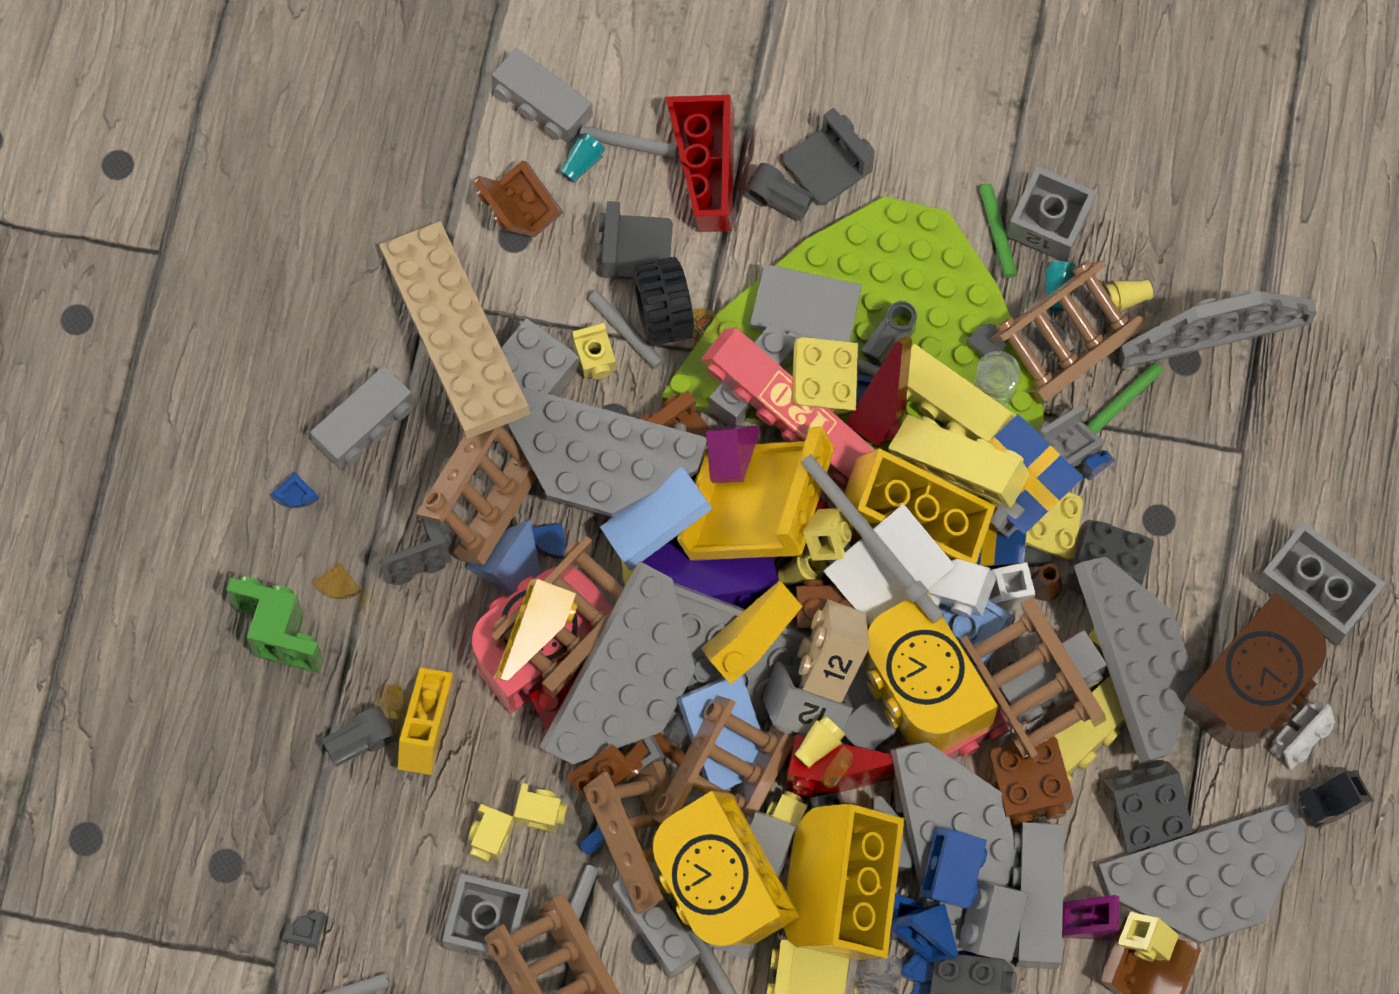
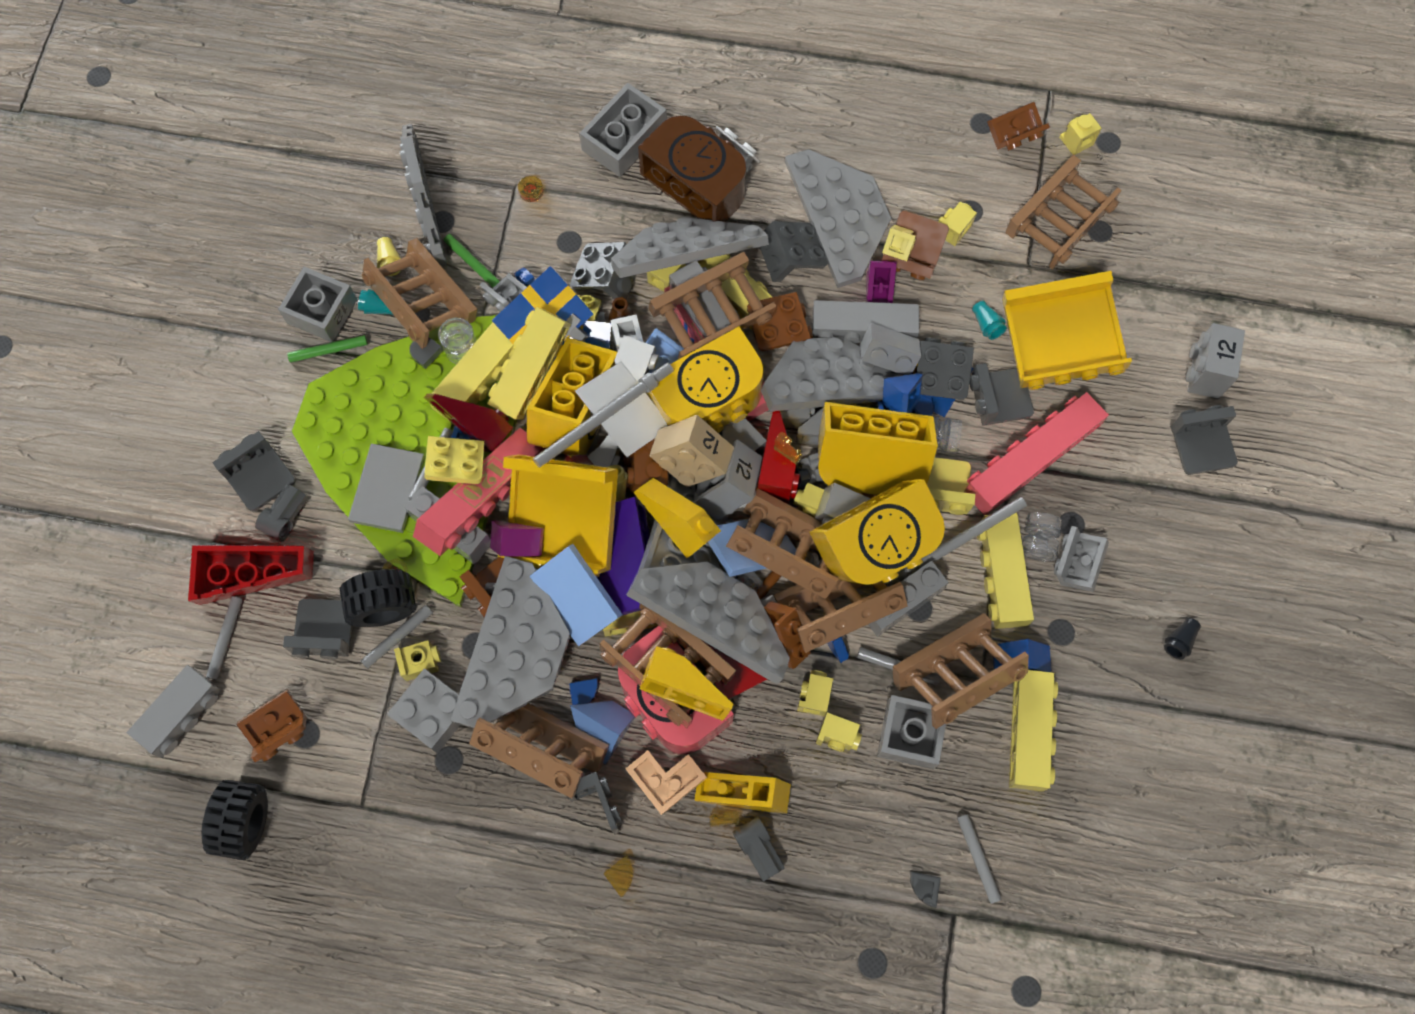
camera: 90 degrees left, 0 degrees up
(275, 624) = (662, 926): bright green bracket -> none
(294, 493) = (537, 919): blue tile -> none
(362, 418) = (471, 858): light grey brick -> none
(413, 166) = (234, 819): none -> black tyre
(434, 631) = (663, 787): none -> light nougat plate
(454, 330) = (396, 774): tan plate -> none
(582, 157) = (236, 675): teal cone -> none
(820, 740) = (766, 461): light yellow cone -> none
(834, 531) = (598, 451): light yellow brick -> none
(888, 333) = (417, 420): dark grey piece -> none
(953, 868) = (859, 370): blue brick -> none
(1235, 469) = (530, 188): none -> clear yellow tile
(1334, 798) = (783, 129): black brick -> none

